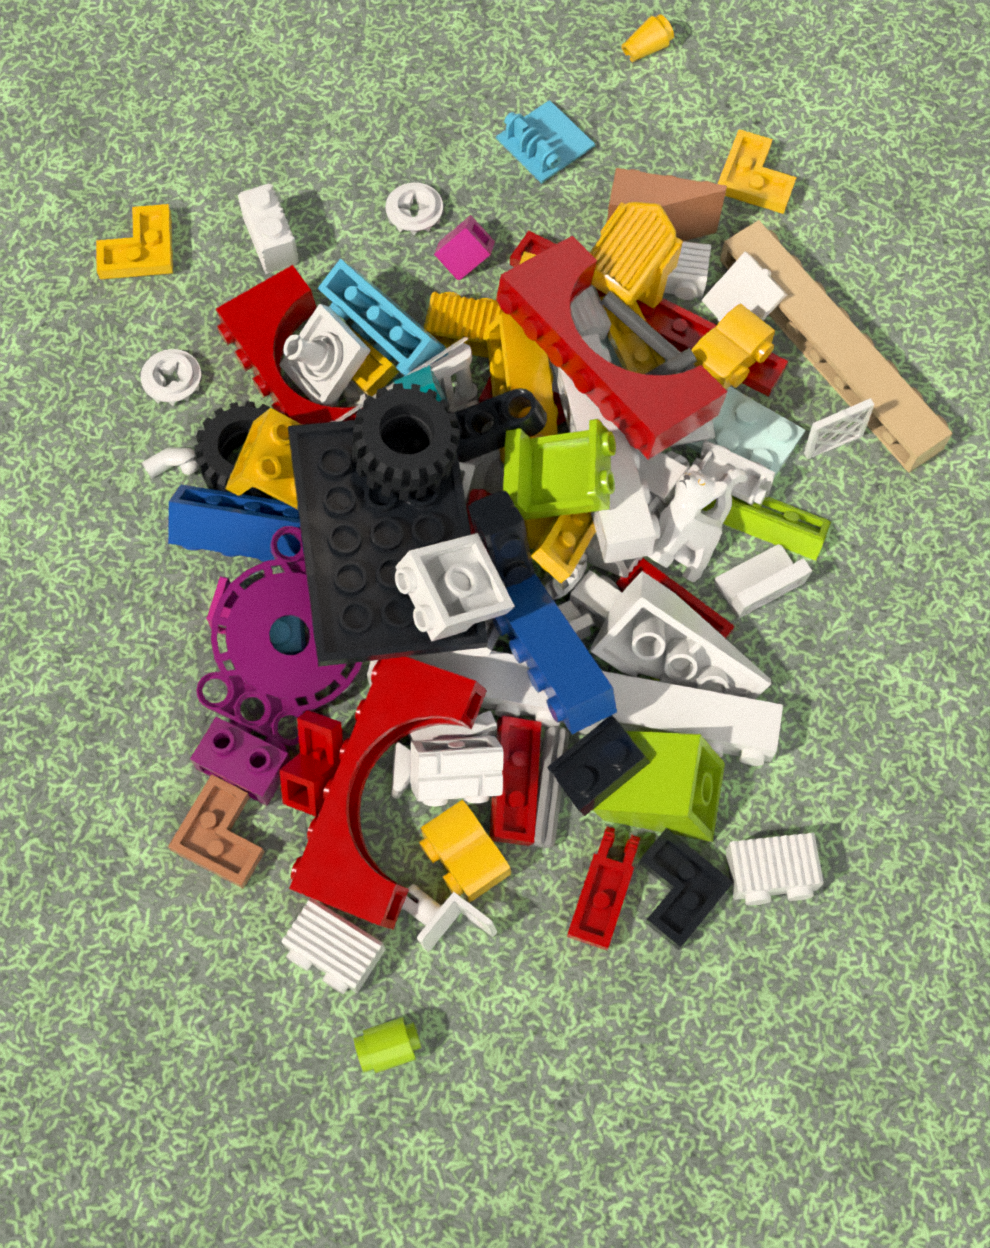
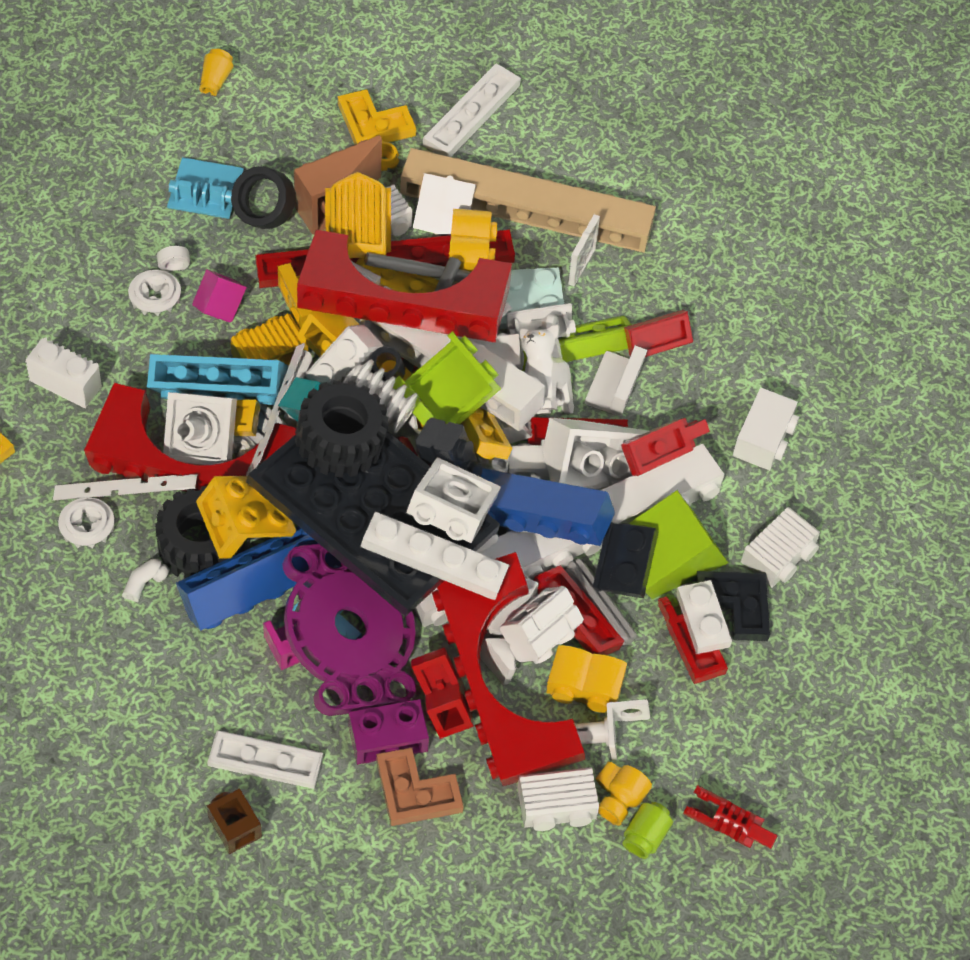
camera: 45 degrees left, 10 degrees down
(30, 726) = (240, 833): none -> reddish brown brick
(123, 703) = (265, 759): none -> white tile
(223, 367) = (124, 486): none -> white piece
(390, 629) = (434, 555): none -> white plate
(401, 991) = (627, 789): none -> yellow piece
(455, 187) = (173, 258): none -> white tile
(475, 1103) = (732, 820): none -> red hinge
(479, 435) = (397, 405): none -> white piece
(489, 377) = (349, 349): none -> white brick
(561, 172) = (242, 189): none -> black tyre
(627, 879) = (703, 617): none -> white plate
(736, 677) = (662, 444): none -> red hinge
(738, 207) = (391, 153): none -> yellow plate
(846, 563) = (660, 333): none -> tile
(857, 223) = (471, 111): none -> white plate
(865, 736) = (765, 429): none -> white brick

